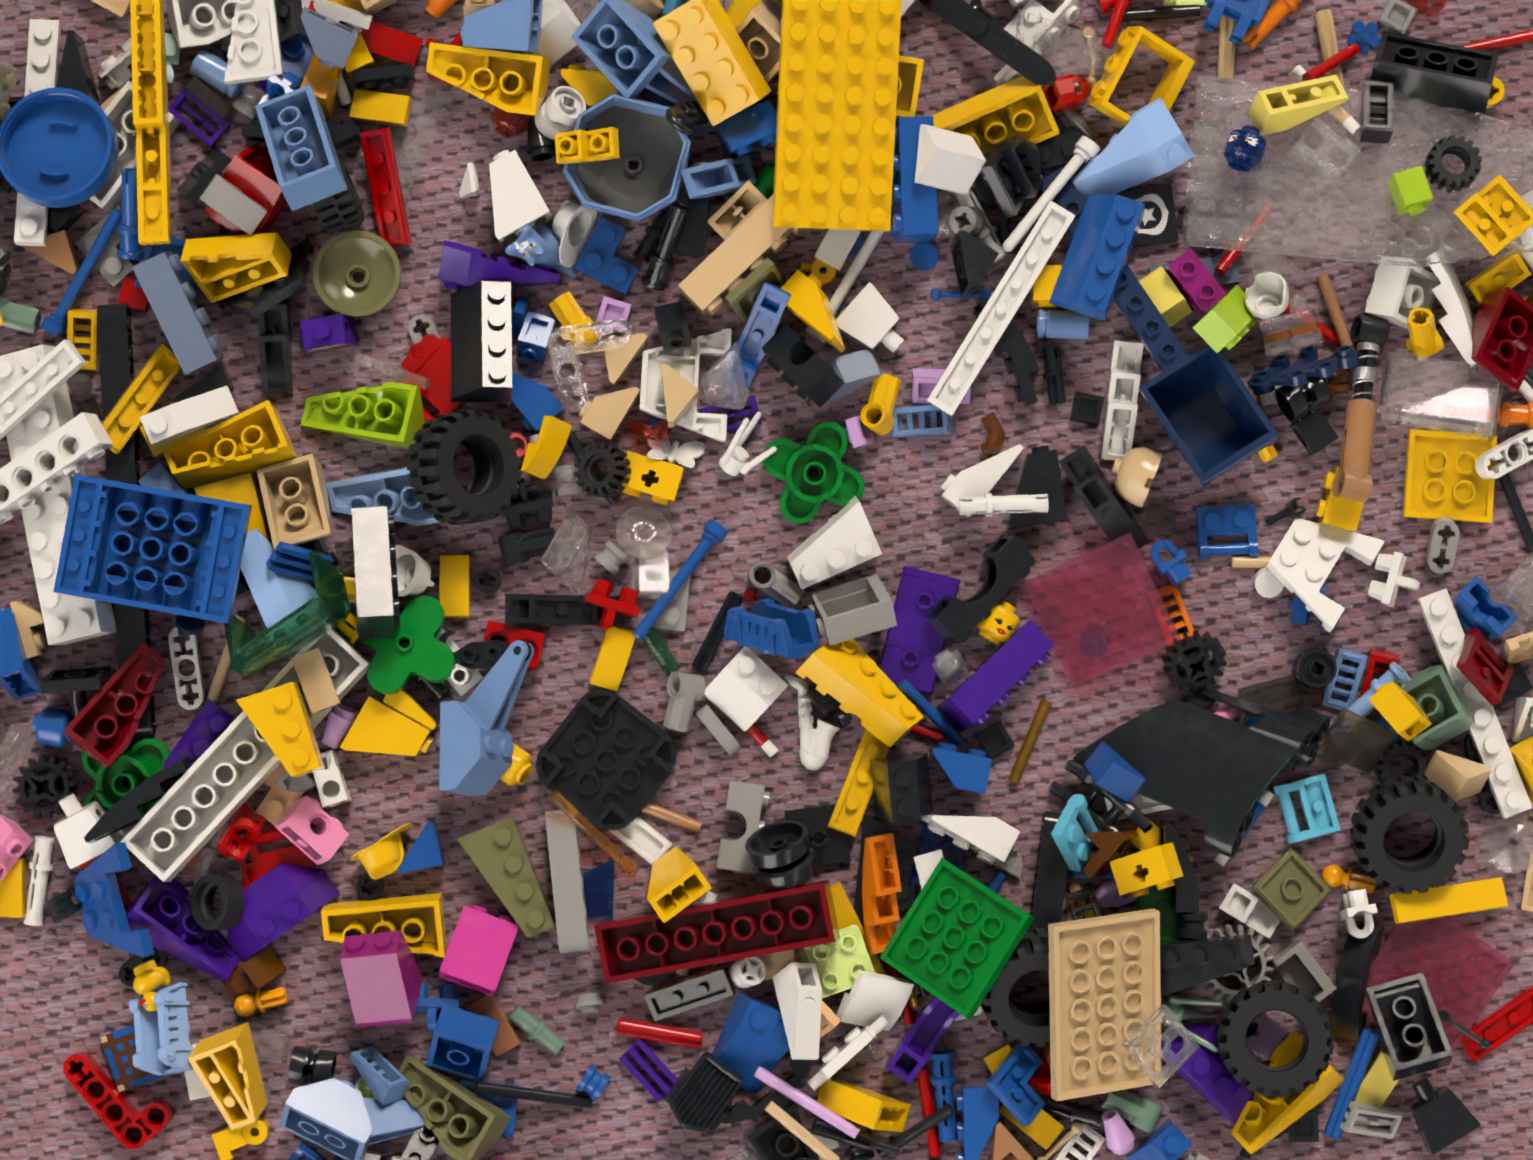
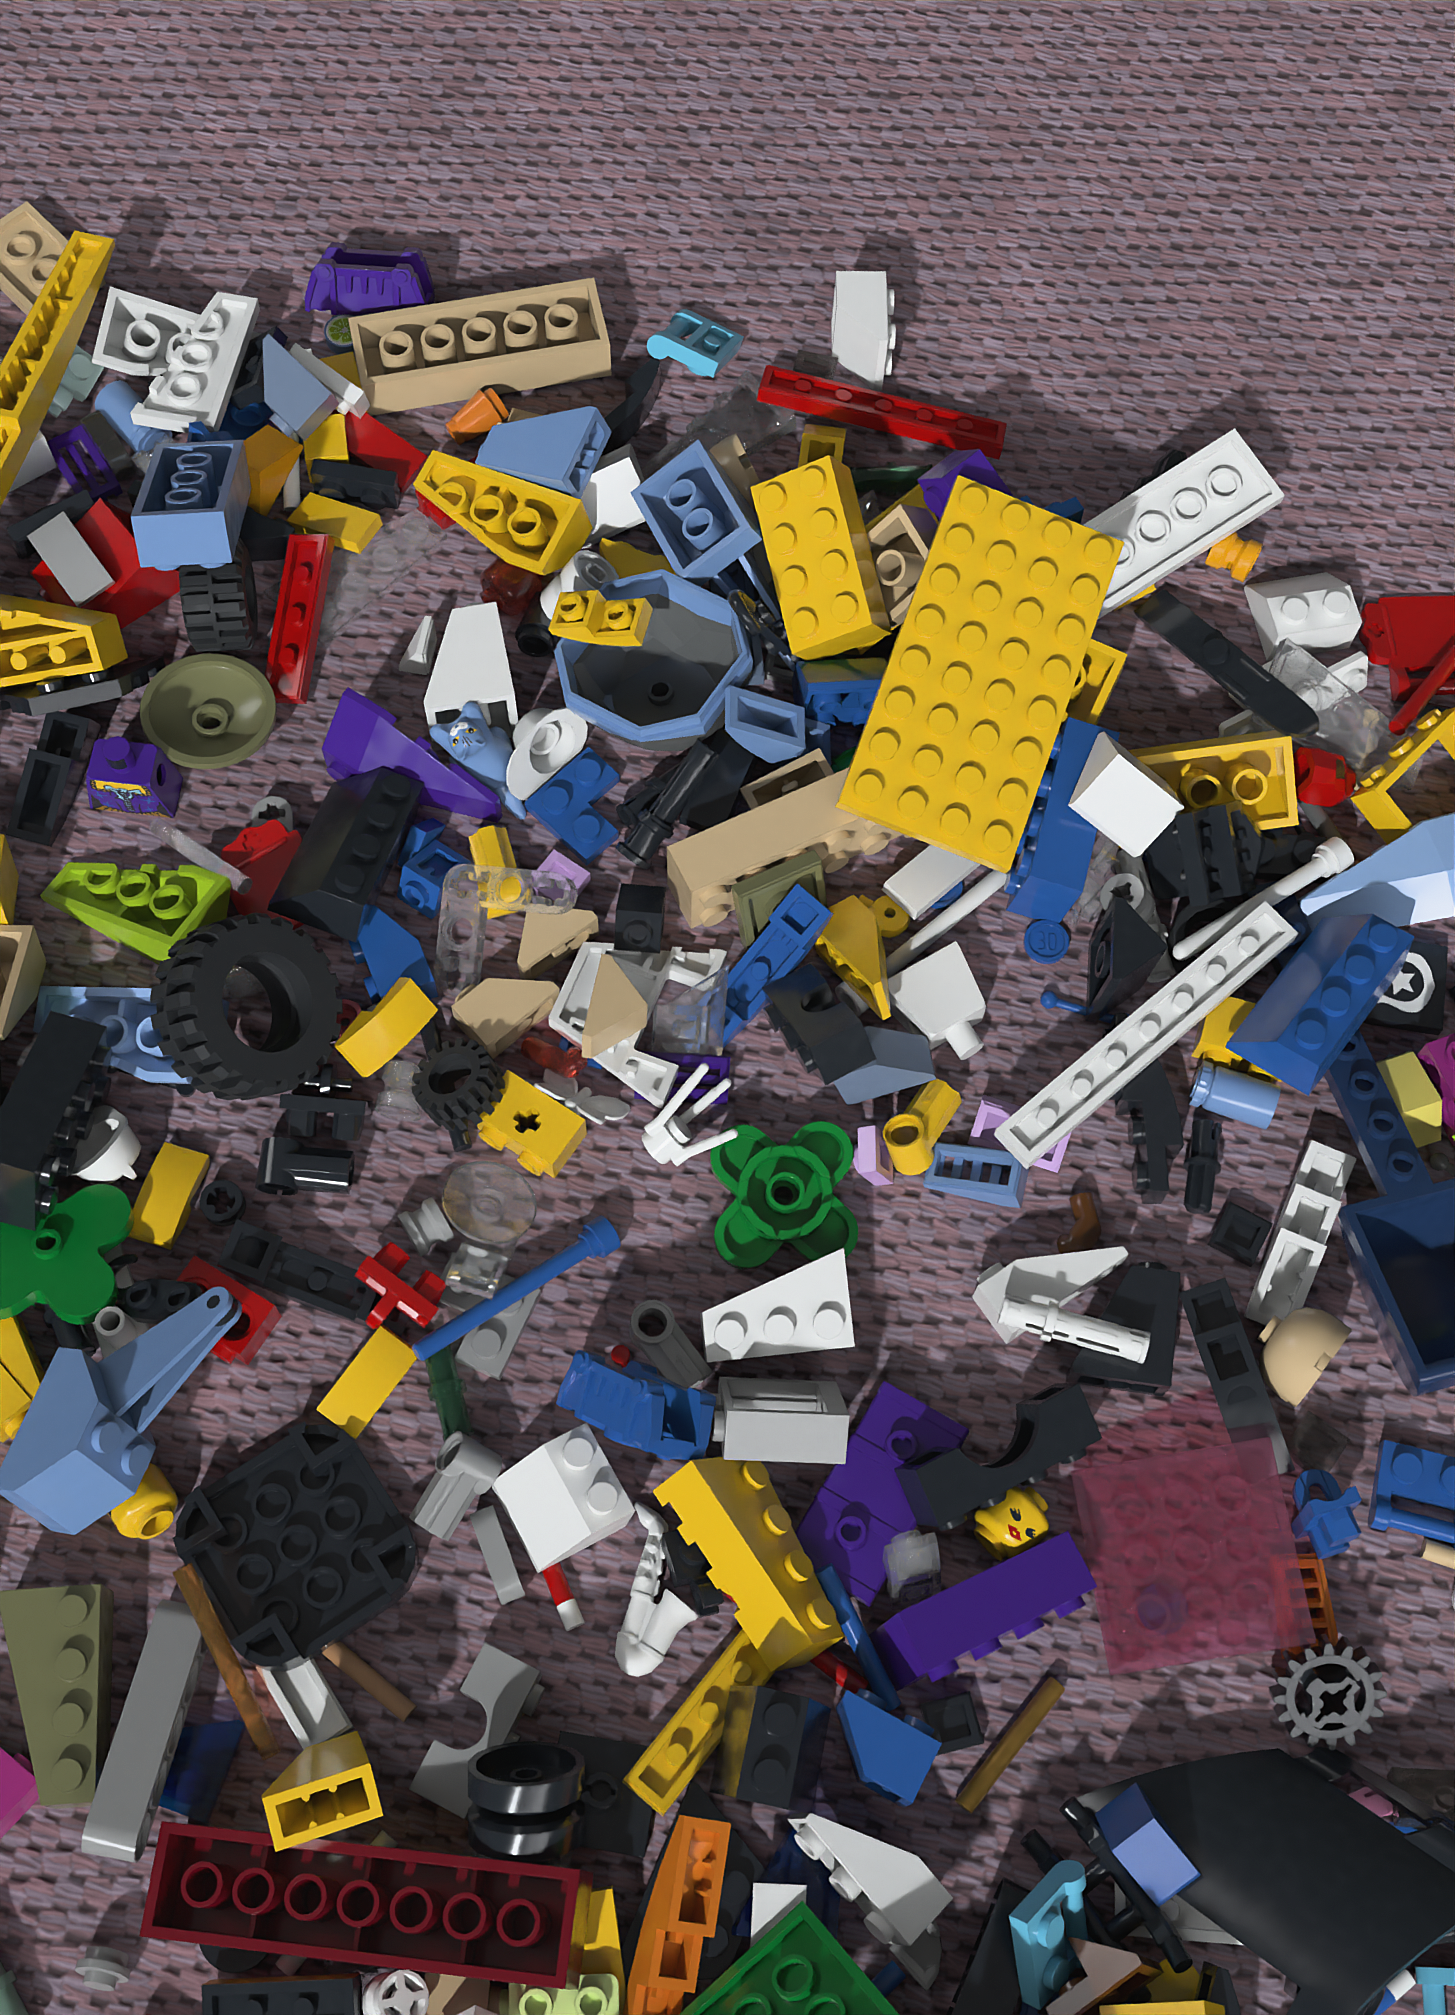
camera: 15 degrees right, 20 degrees down
(569, 552) = (362, 1196): clear wing -> none
(715, 633) = (539, 1405): black axle -> none

